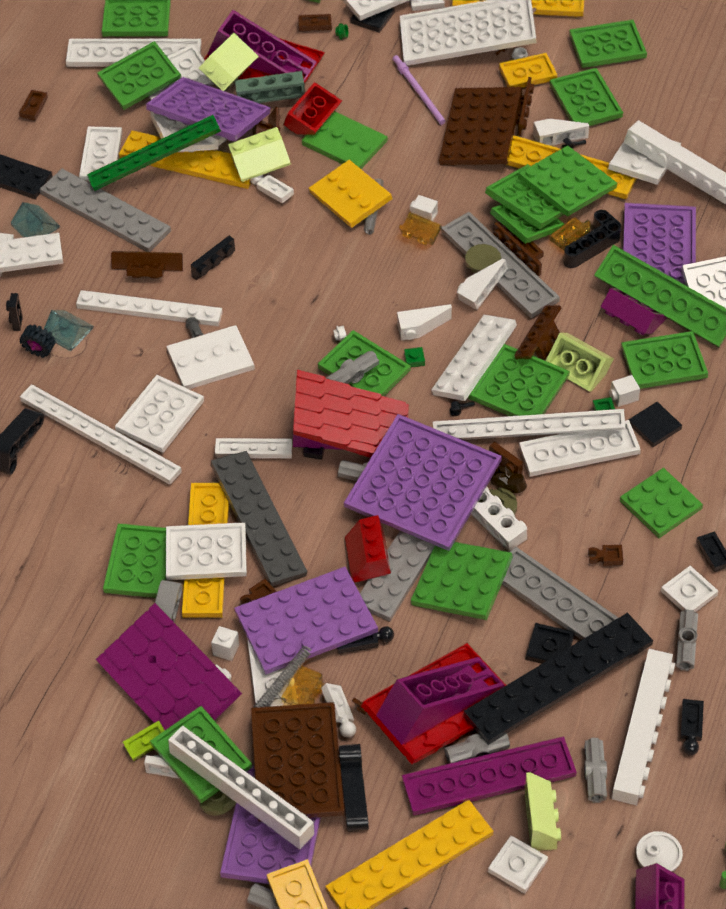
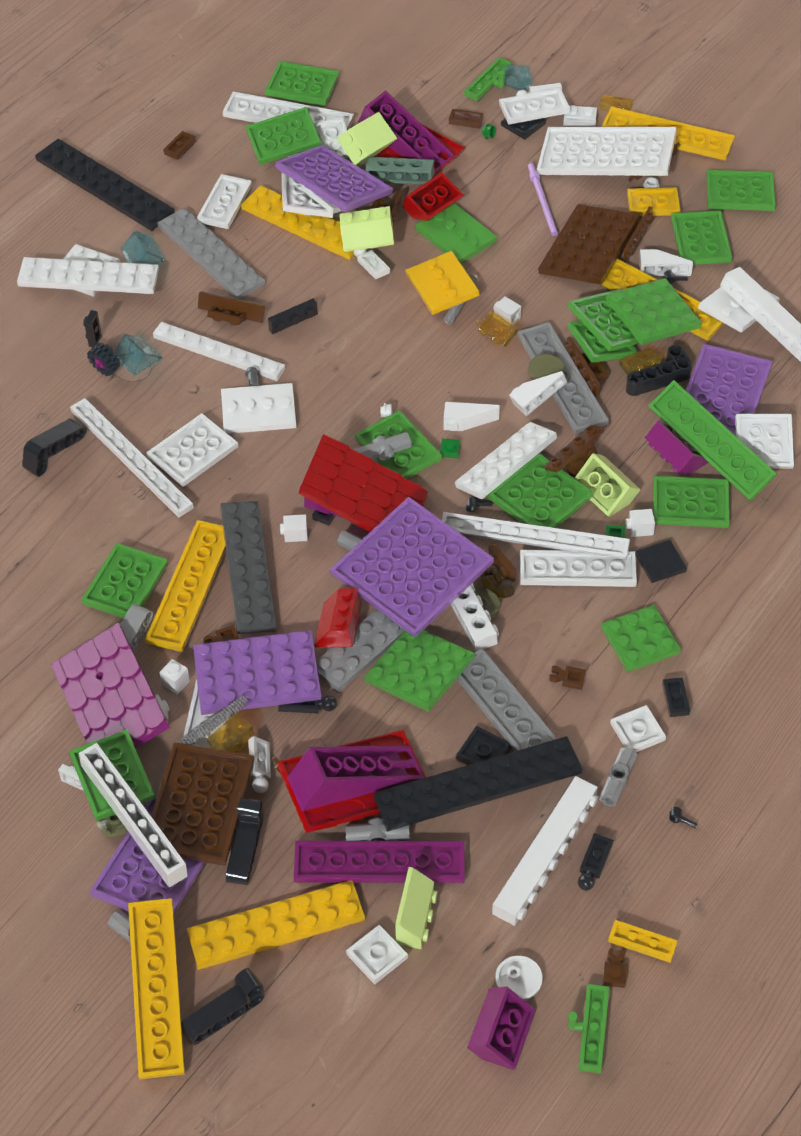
camera: 15 degrees right, 0 degrees up
(140, 744) = (59, 752): lime plate -> none
(153, 152) = (268, 208): green plate -> none
(206, 551) = (186, 586): white plate -> none
(255, 447) = (268, 500): white plate -> none
(291, 469) = (294, 528): none -> white brick
(595, 770) = (484, 881): light grey piece -> none

